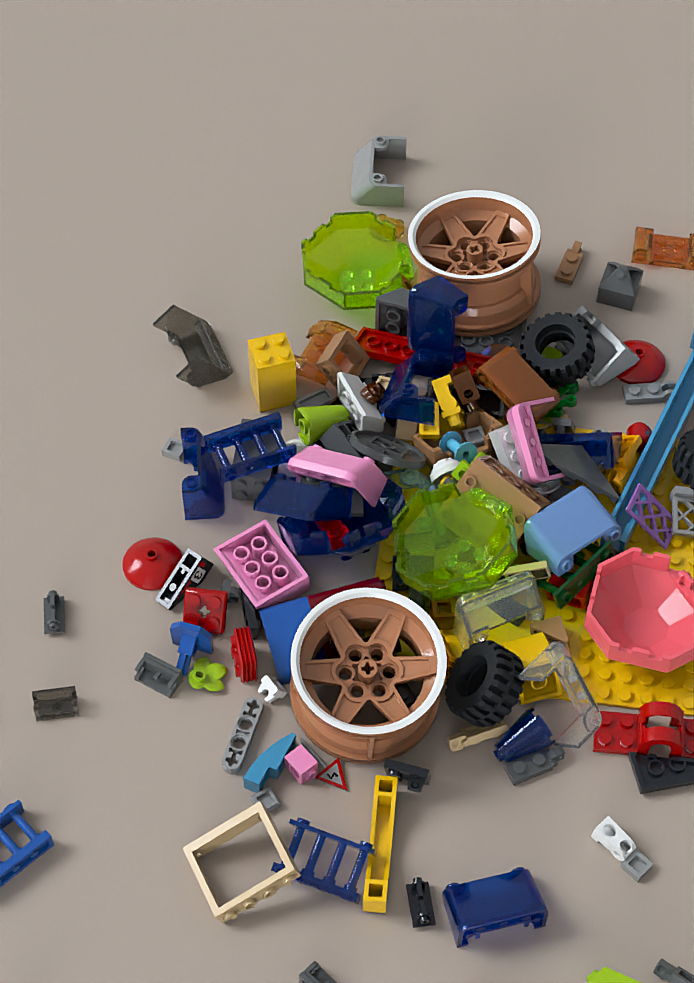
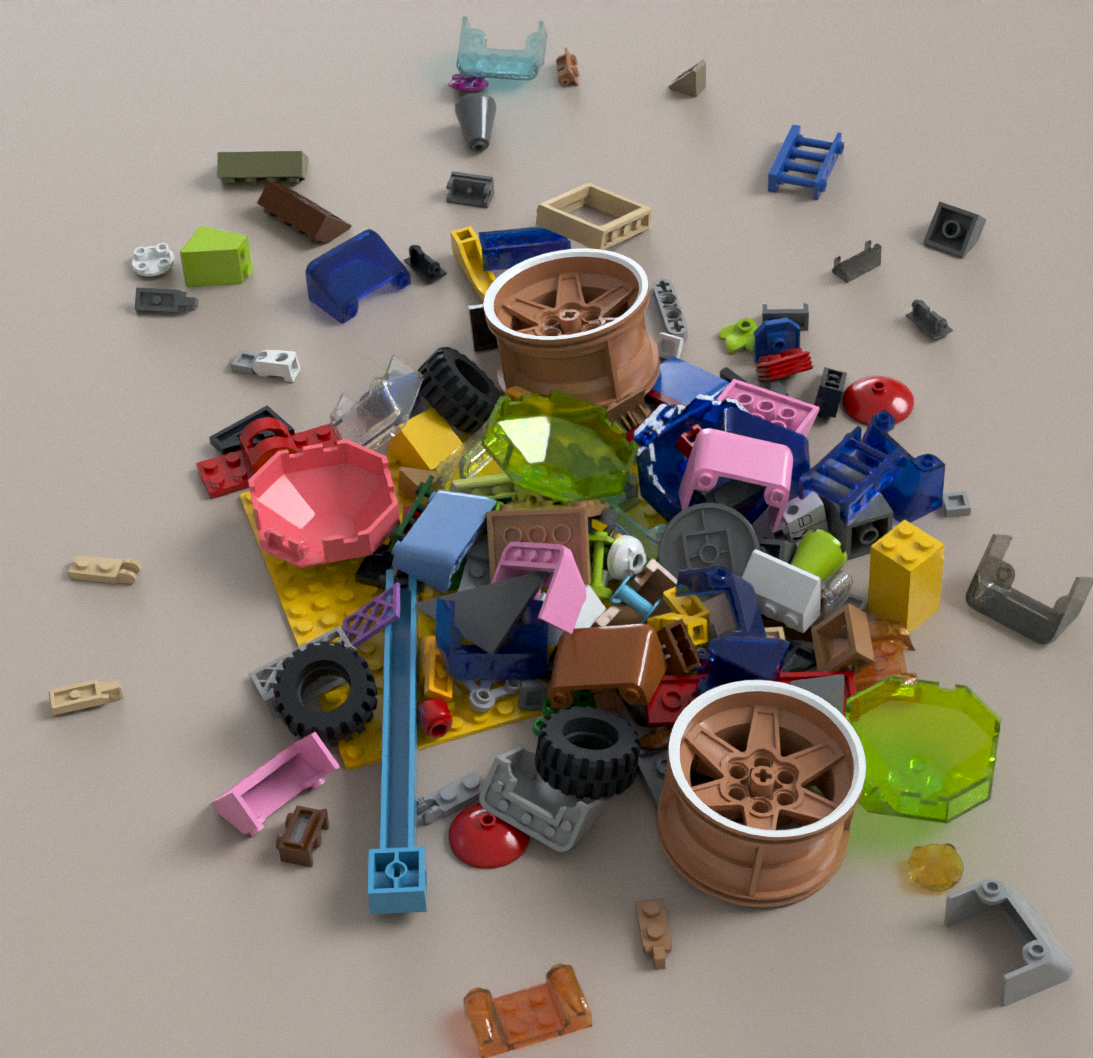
camera: 155 degrees right, 10 degrees down
(244, 654) = (713, 346): red brick -> none
(373, 392) = (773, 601): reddish brown plate -> none
(619, 285) = (565, 912): dark grey piece -> none

